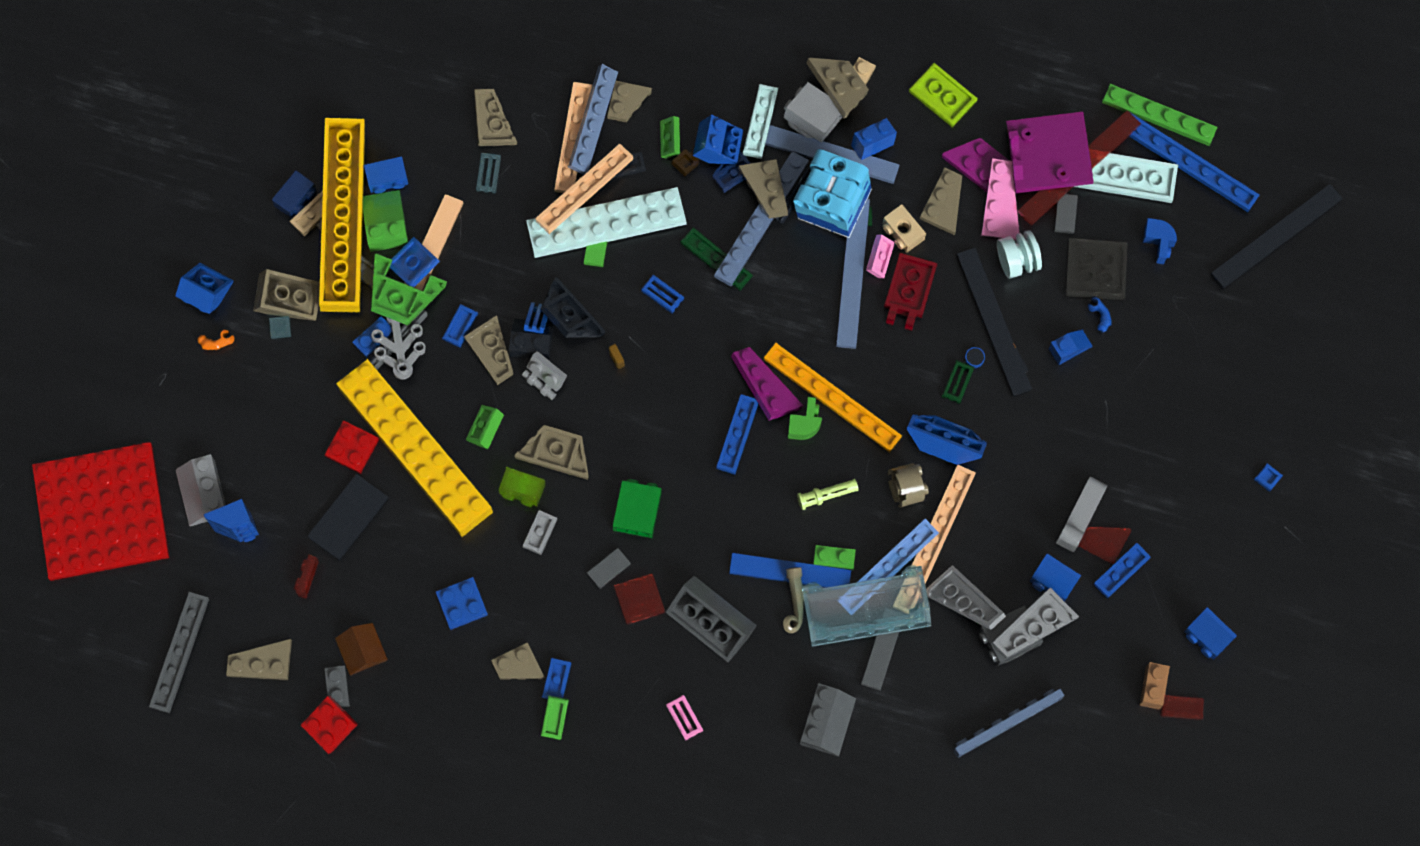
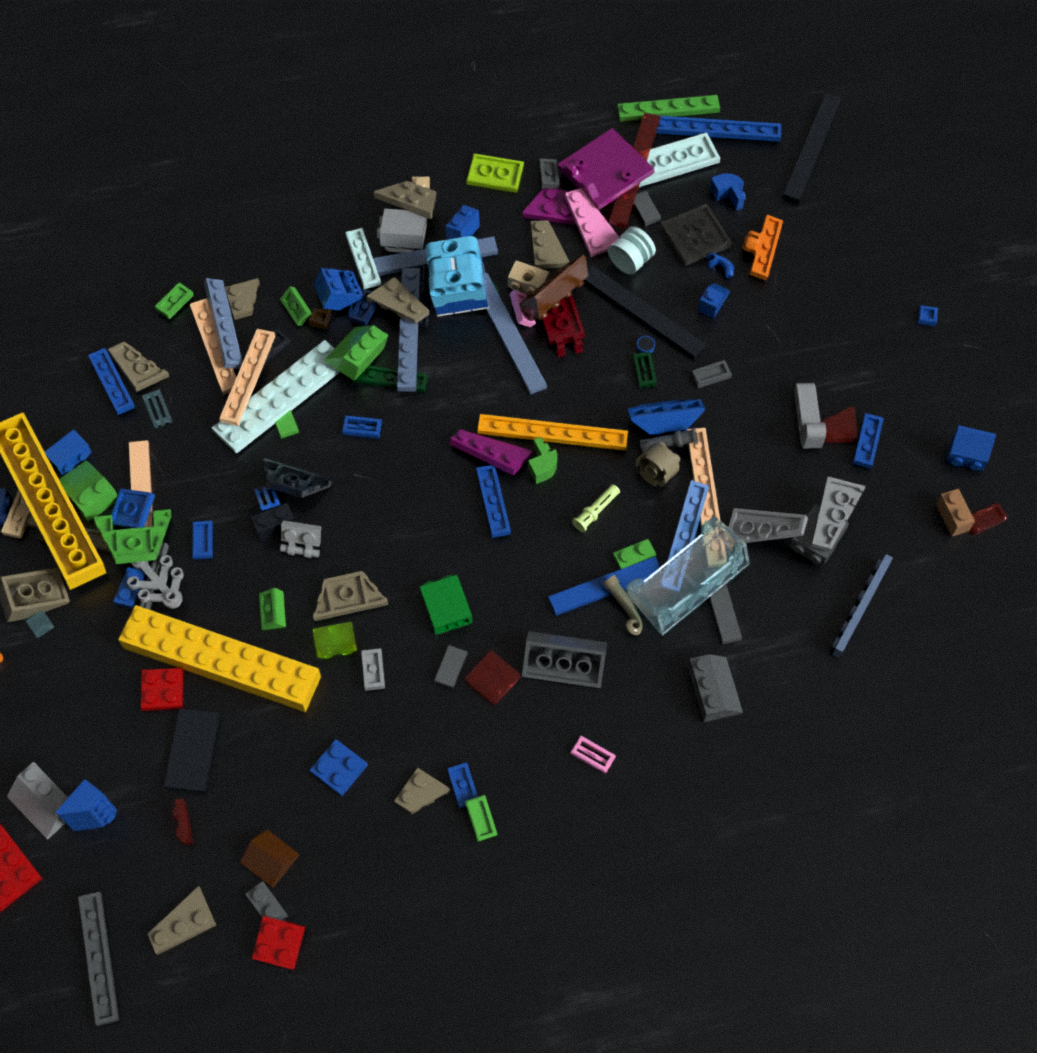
camera: 30 degrees left, 10 degrees down
(461, 123) = (111, 381): none -> blue plate
(491, 350) = (241, 544): dark tan wing -> none
(561, 69) = (174, 300): none -> bright green plate
(616, 356) = (353, 493): pearl gold tile -> none
(698, 216) = (357, 350): none -> bright green slope
(918, 256) = (555, 289): none -> reddish brown slope
(941, 470) = (678, 439): none -> dark grey pin
(993, 125) = (549, 174): none -> dark grey plate
(1018, 421) = (711, 374): none -> dark grey tile
(1056, 576) = (819, 467): blue slope -> none
(1154, 317) = (763, 246): none -> orange plate

